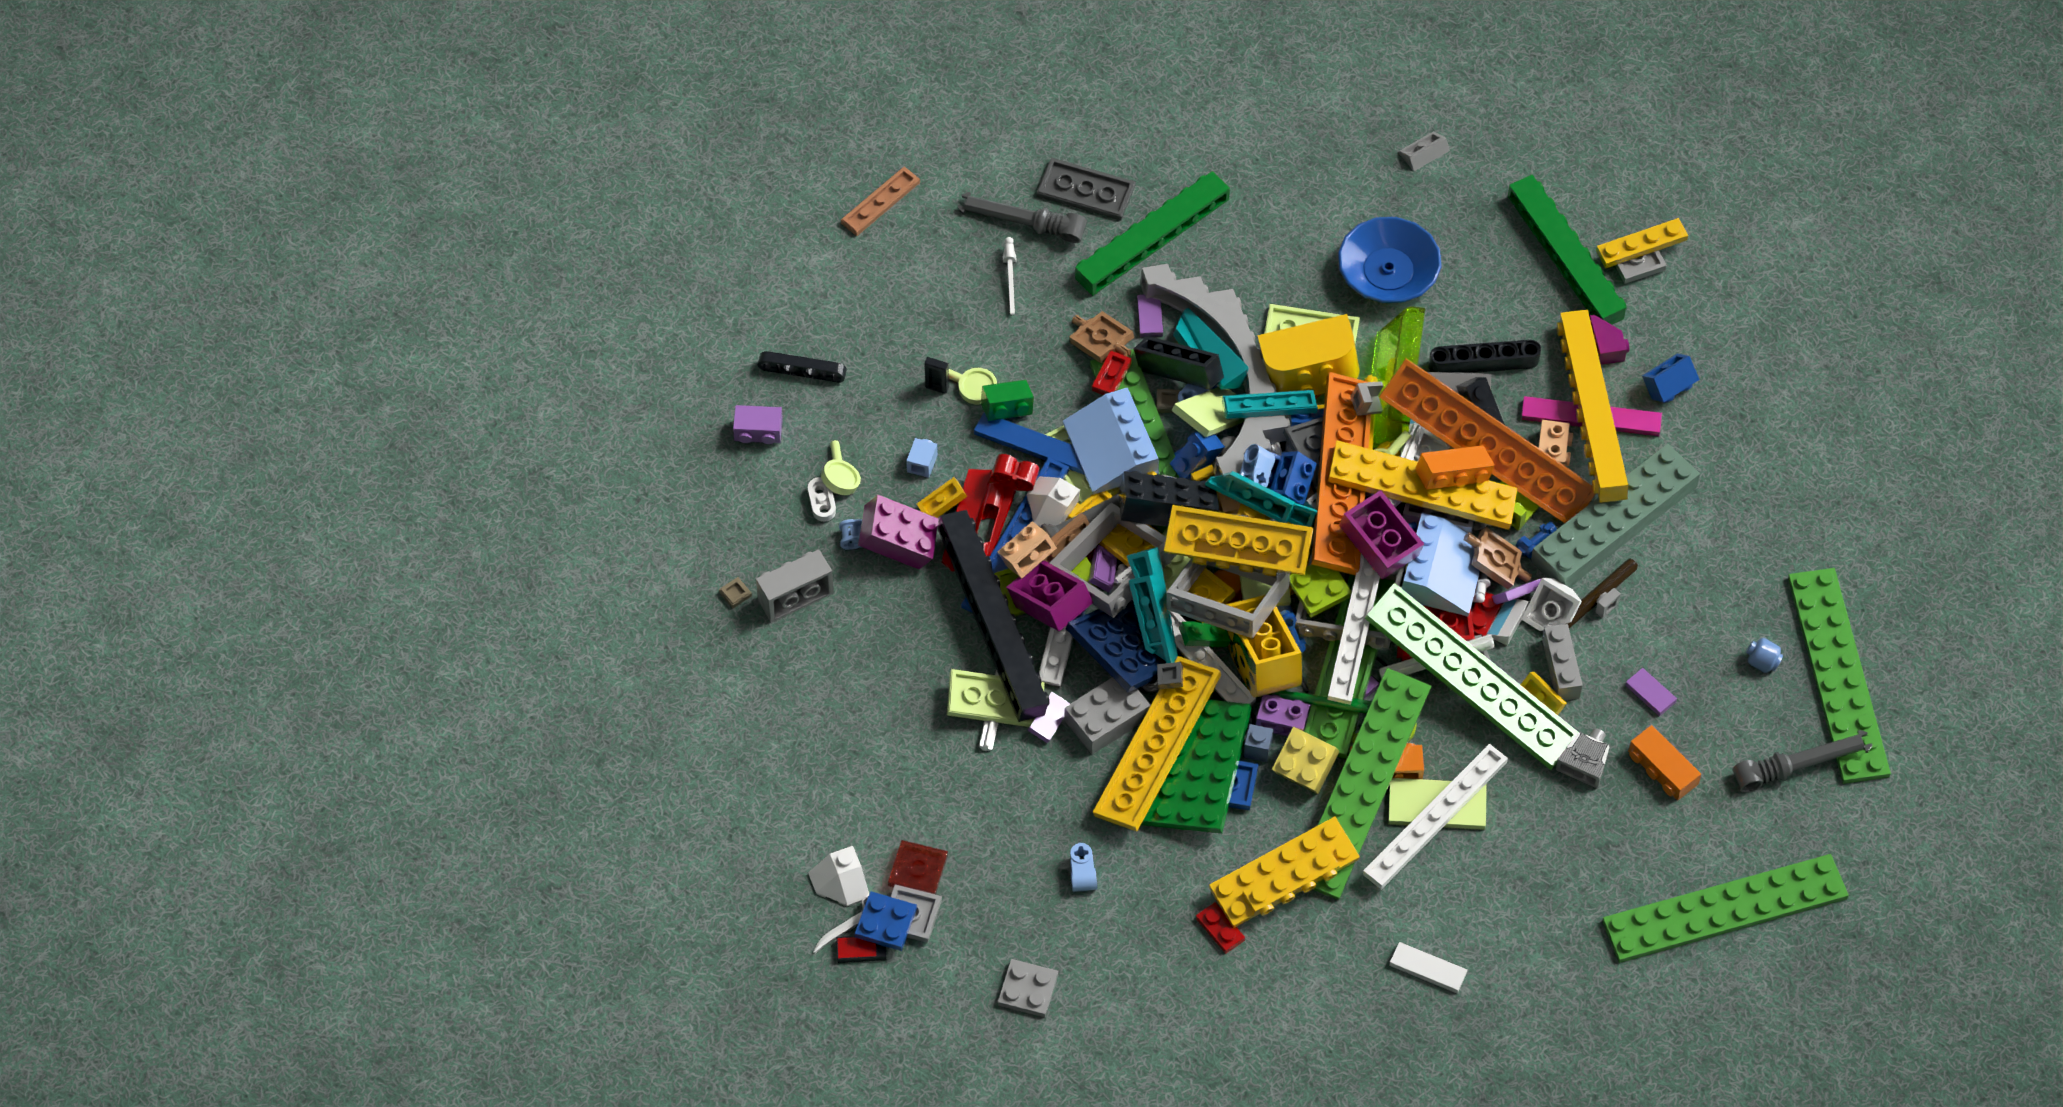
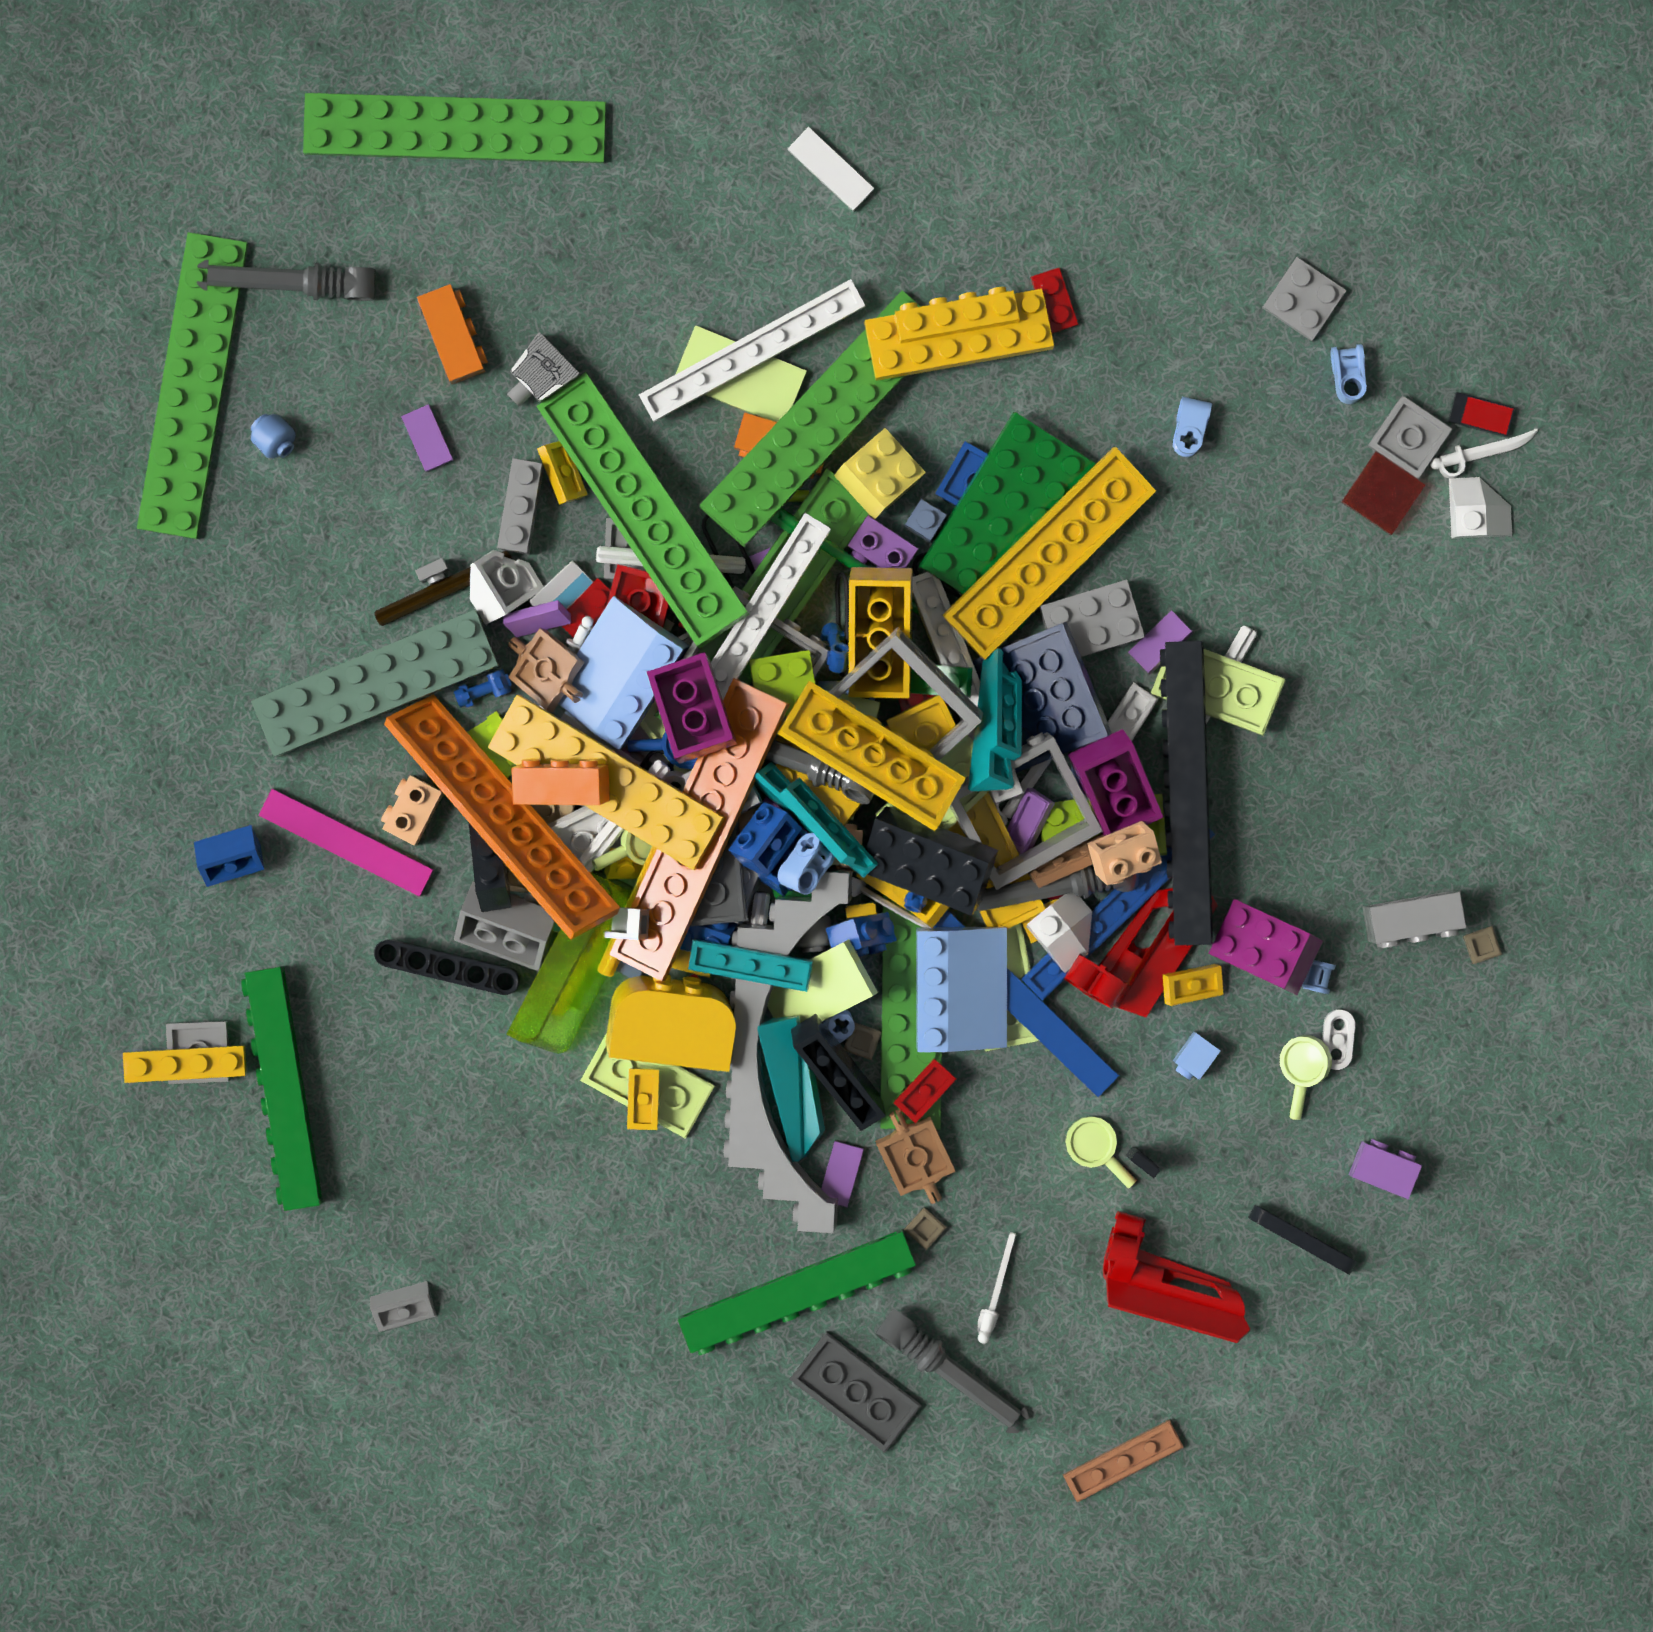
camera: 160 degrees left, 30 degrees up
(885, 921) = (1446, 431): blue plate -> none
(908, 305) = (1141, 1286): none -> red panel
(975, 946) = (1349, 366): none -> light blue piece
(1007, 400) = (1065, 1099): green brick -> none
(1076, 299) = (925, 1228): none -> dark tan tile
(1170, 675) = (1006, 628): dark grey plate -> none
(1308, 307) = (643, 1099): none -> yellow plate
(1391, 244) = (508, 1173): blue dish -> none
(1593, 406) = (344, 840): yellow brick -> none
(1609, 341) = (285, 938): magenta slope -> none

